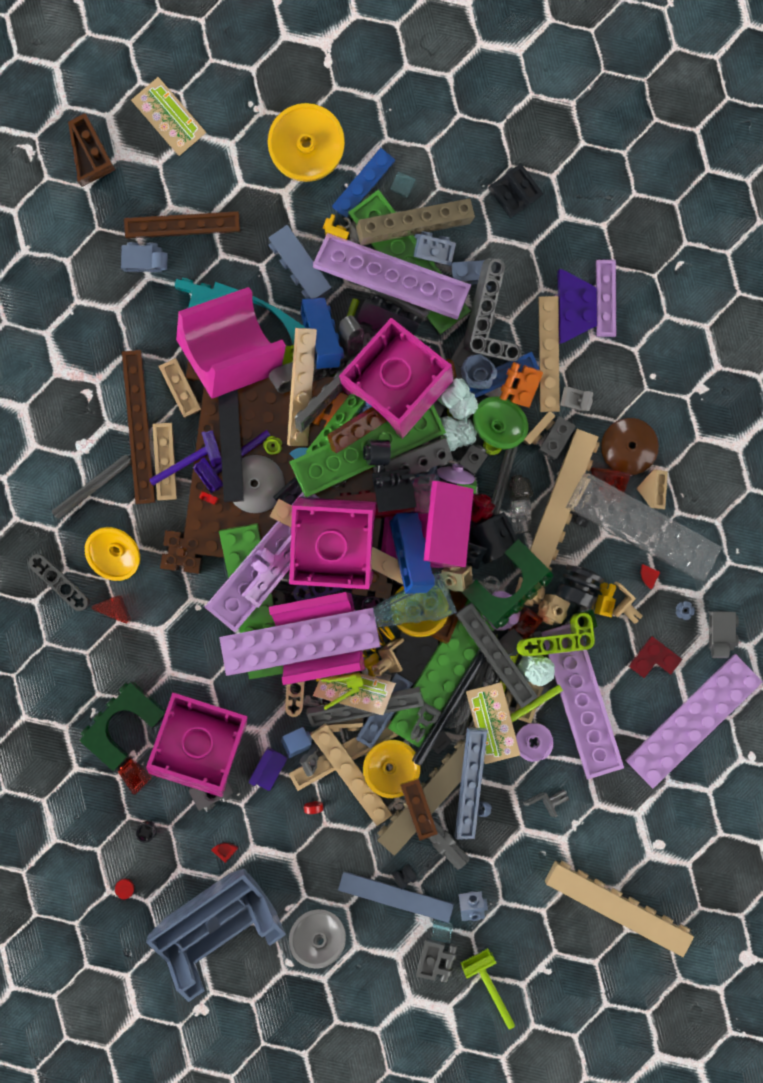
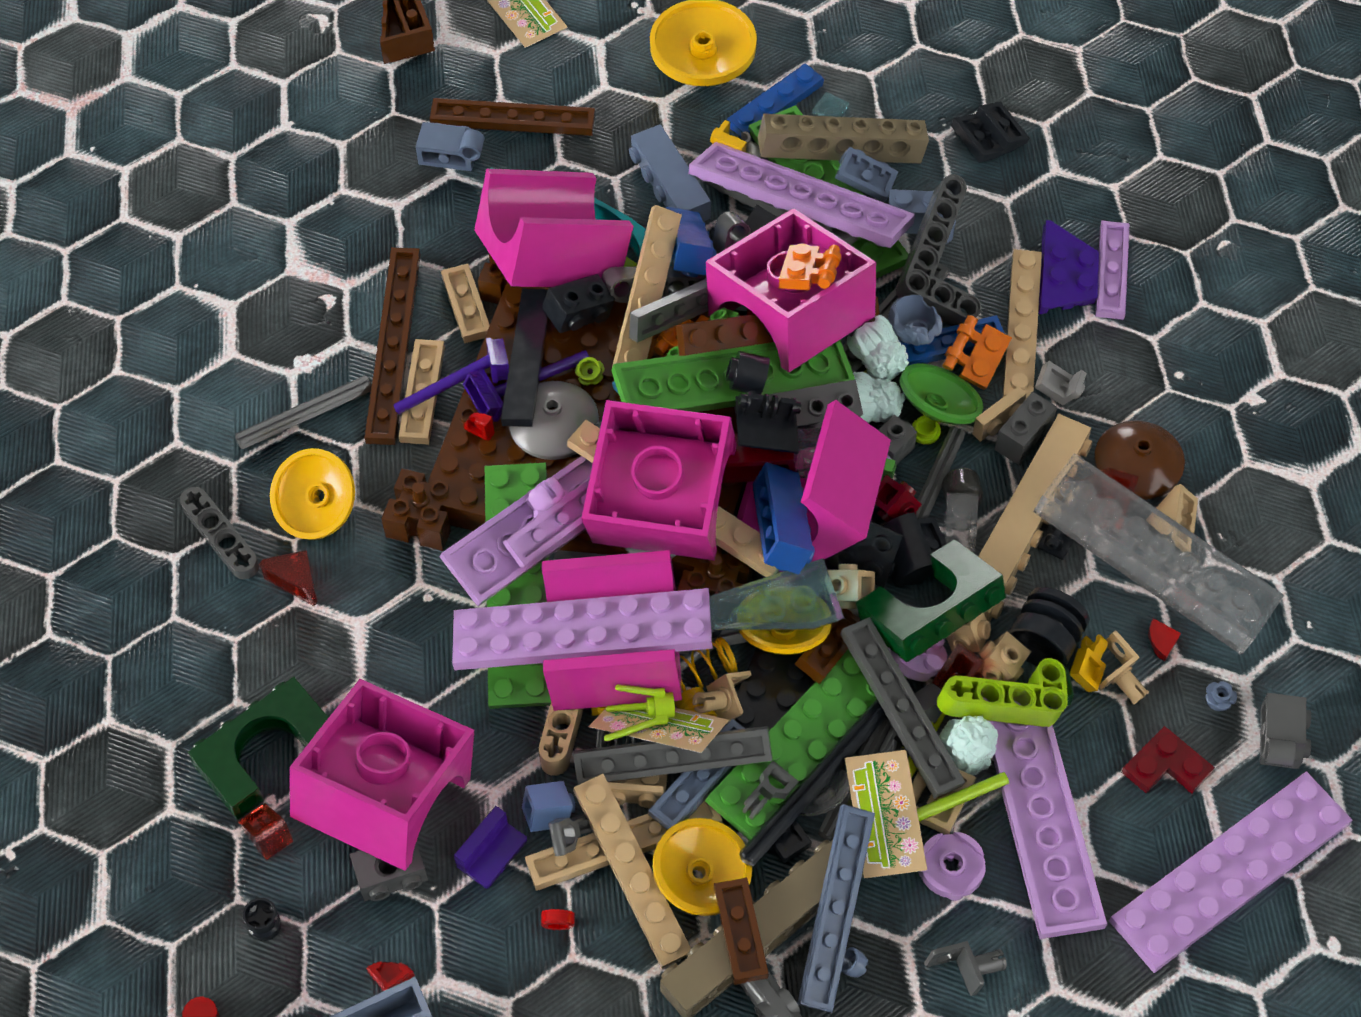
camera: 10 degrees right, 30 degrees down
(257, 399) = (578, 303): none -> black brick
(402, 377) = (807, 265): none -> orange plate

